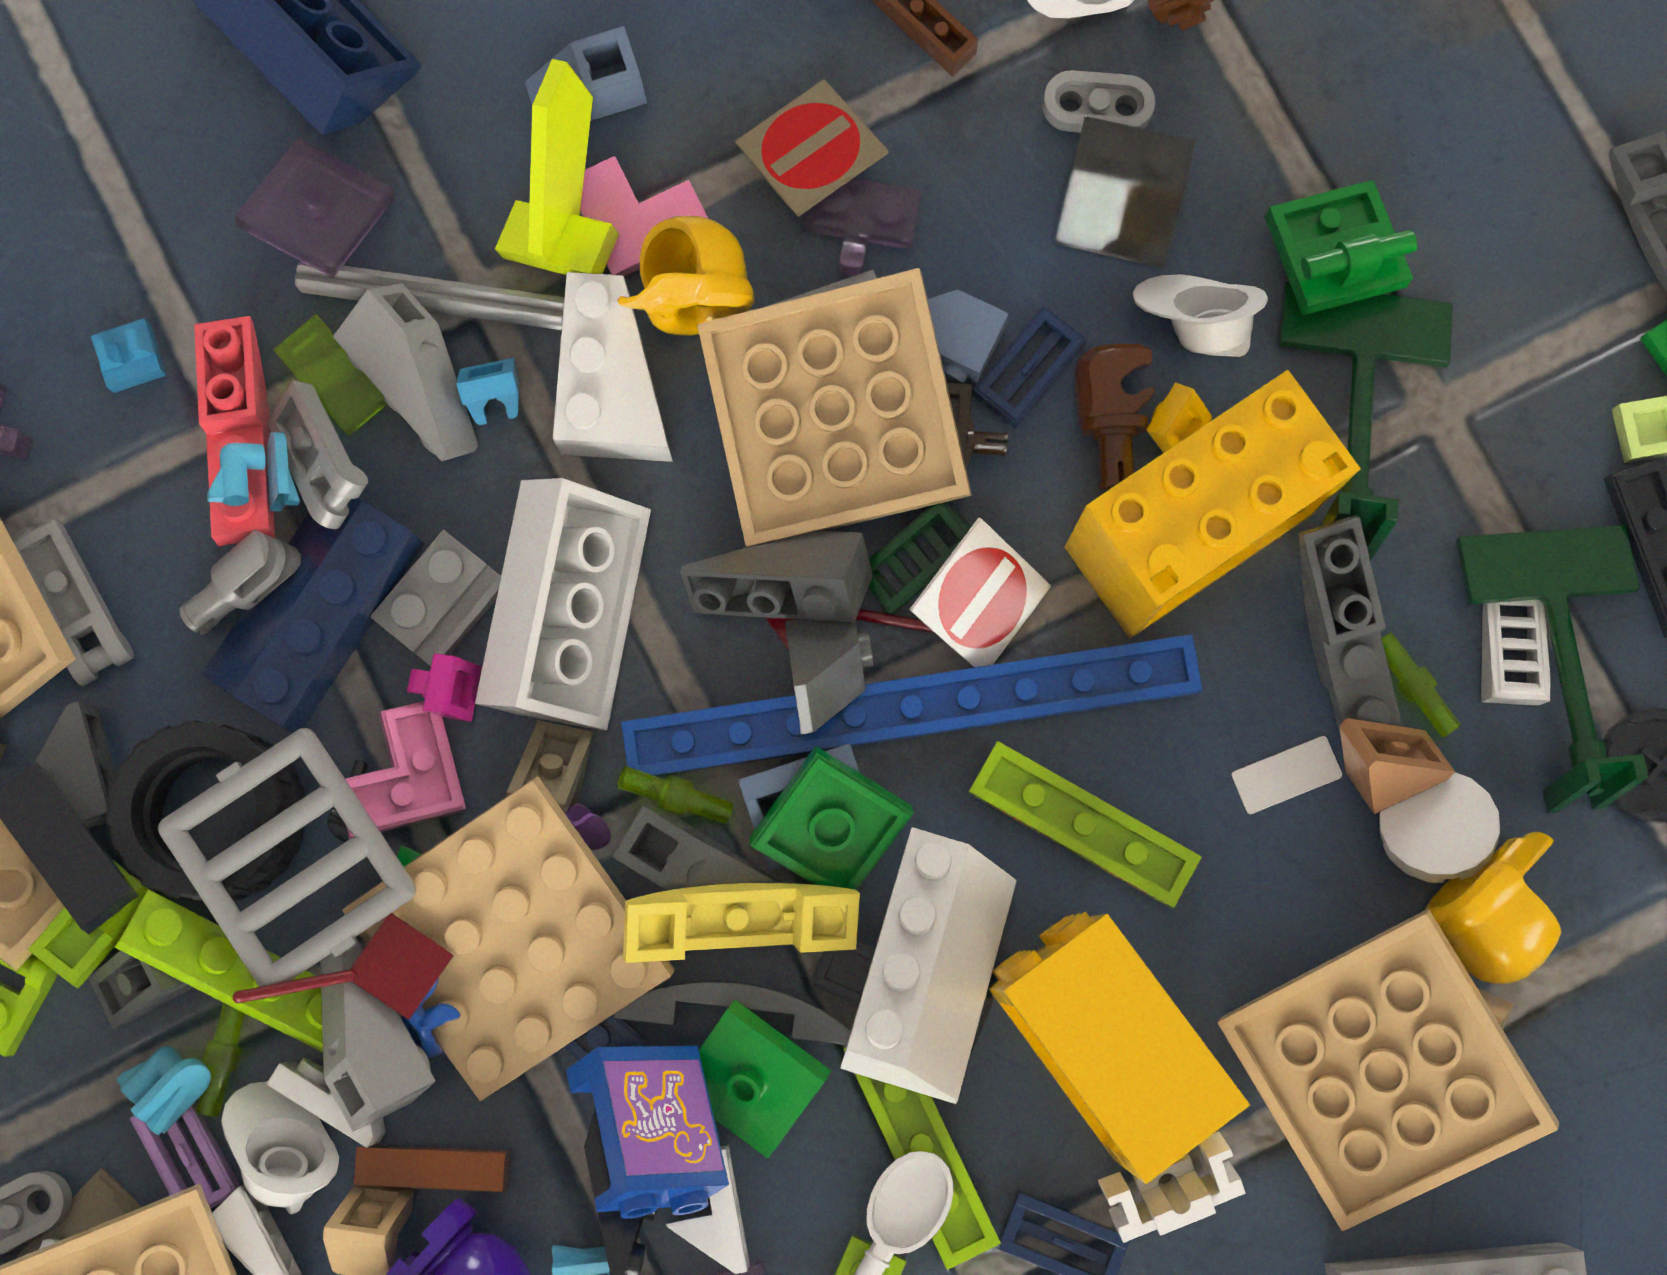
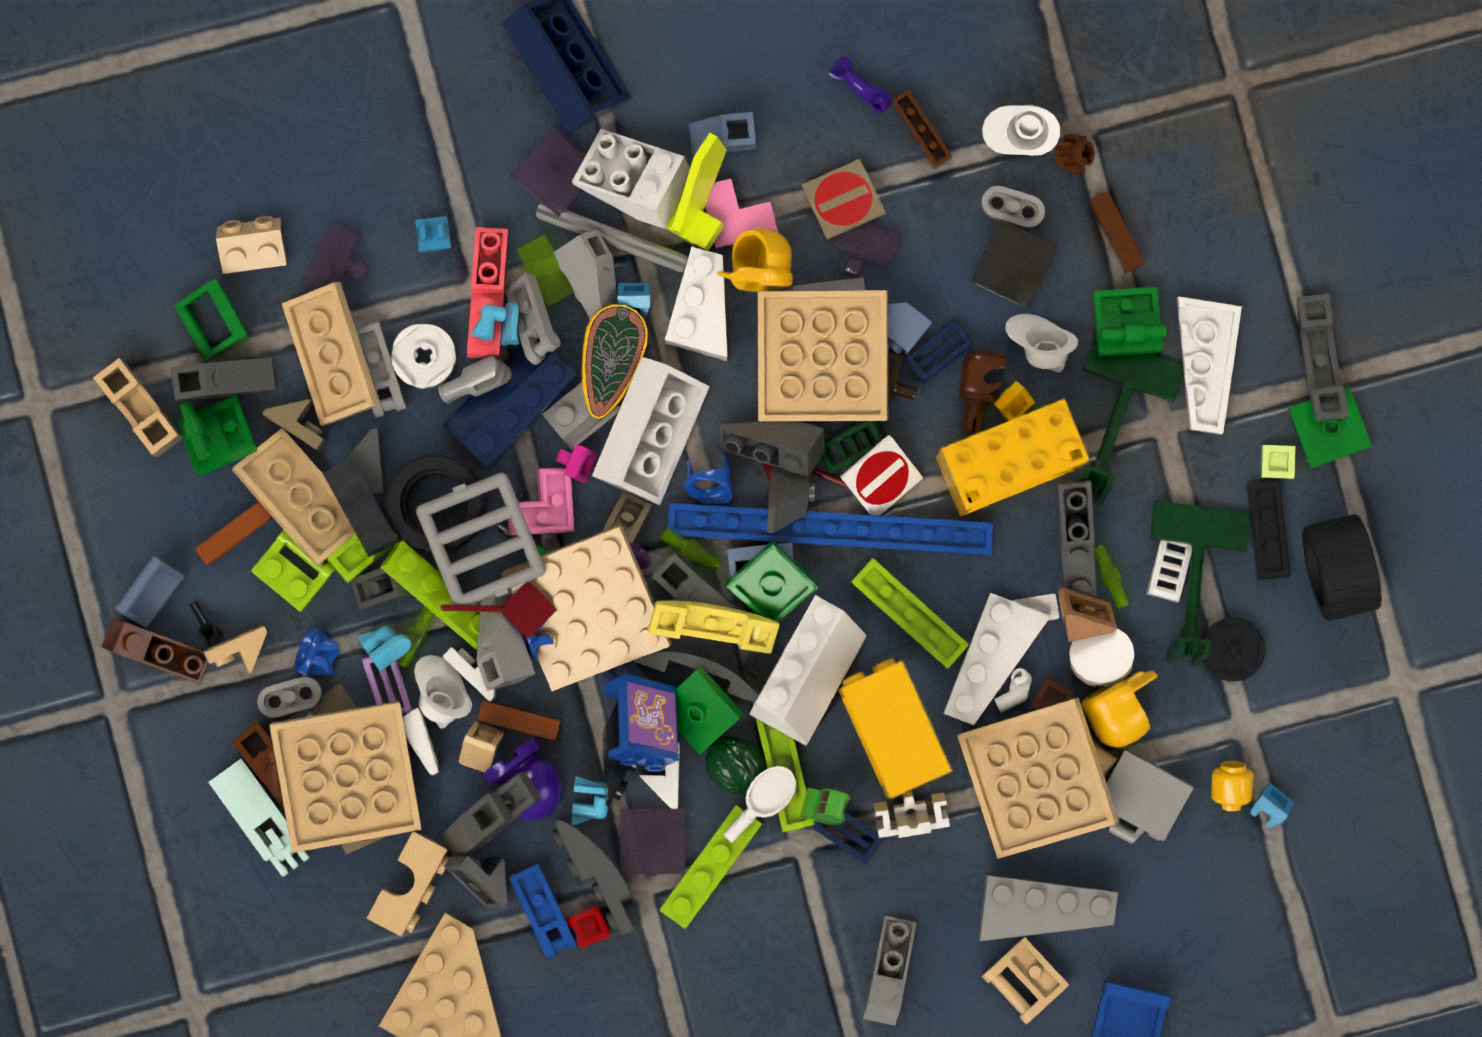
camera: 10 degrees right, 5 degrees up
(48, 1127) = (316, 654): none -> blue piece
(113, 564) = (405, 355): none -> white plate
(447, 184) = (633, 177): none -> white slope
(467, 490) = (610, 356): none -> shield
(703, 692) = (718, 495): none -> blue piece
(833, 1163) = (734, 764): none -> dark green hair
(1014, 1208) = (825, 806): none -> bright green leg
(1248, 851) = (996, 648): none -> white wing
(1281, 109) = (1116, 232): none -> reddish brown piece
(1304, 921) = (1018, 690): none -> white arm
(1365, 915) = (1050, 694): none -> reddish brown plate
(1489, 280) = (1208, 356): none -> white wing
(1584, 1060) = (1145, 797): none -> light grey piece

